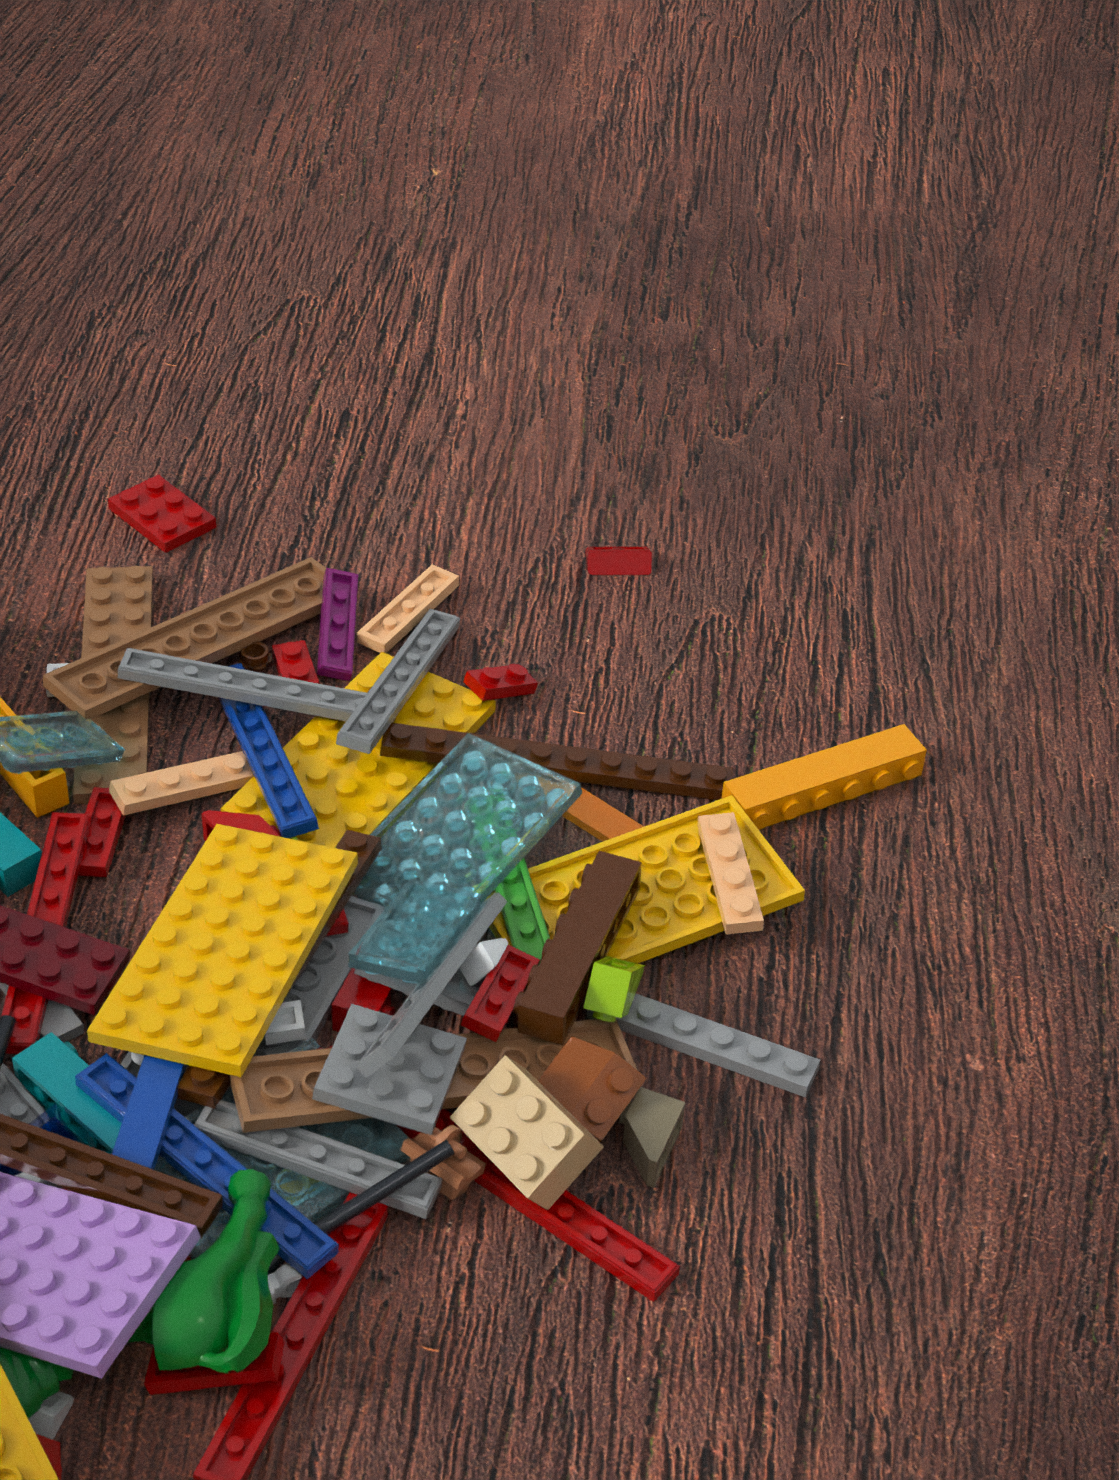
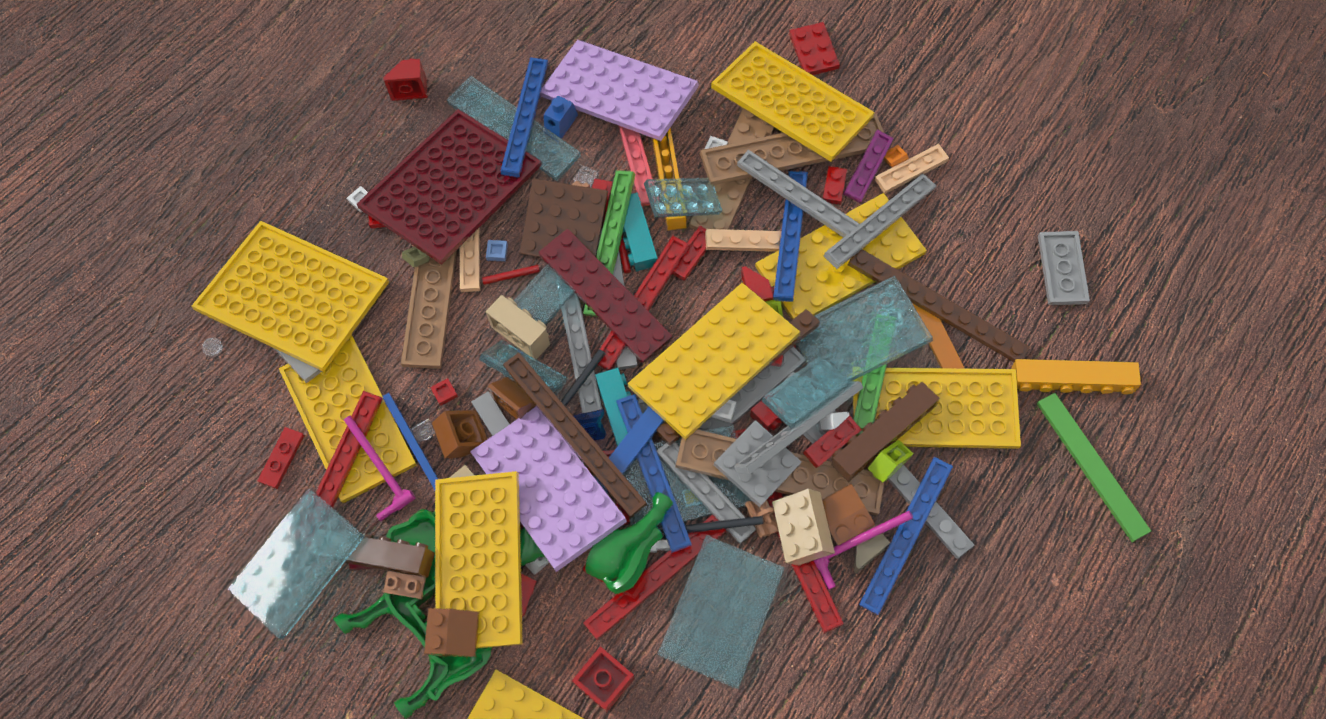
camera: 35 degrees right, 25 degrees up
(164, 573) = (793, 101): none -> yellow plate
(255, 657) = (817, 166): reddish brown plate -> none
(374, 599) = (895, 156): none -> orange plate
(451, 1344) = (721, 612): none -> clear light blue plate
(500, 682) = (935, 239): red plate -> none
(586, 1185) = (822, 563): none -> dark pink bar
(619, 560) = (1046, 176): red slope -> none
(704, 1094) = (906, 536): none -> blue tile
(717, 656) = (1063, 268): none -> light grey plate
(730, 873) = (986, 419): light nougat plate -> none
(930, 888) = (1093, 467): none -> bright green tile

